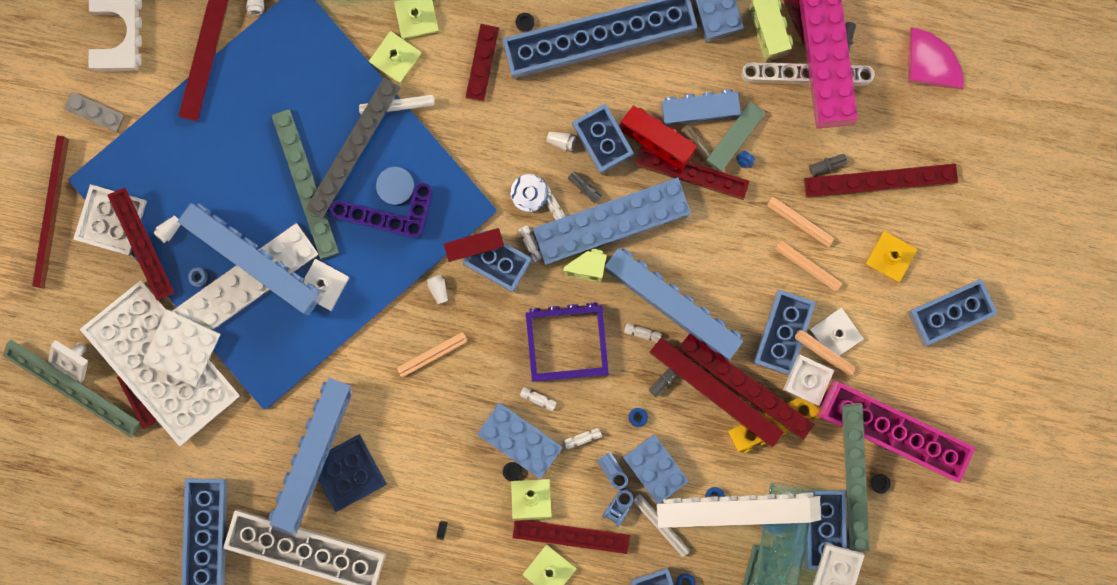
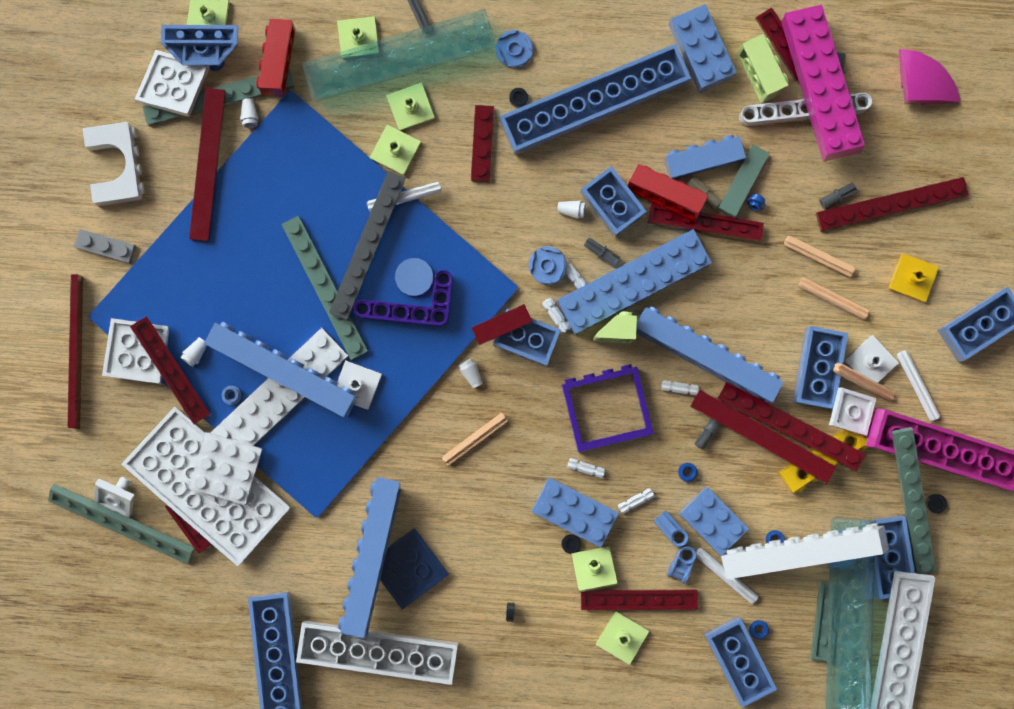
camera: 10 degrees left, 0 degrees up
(880, 364) = (918, 385): none -> white axle

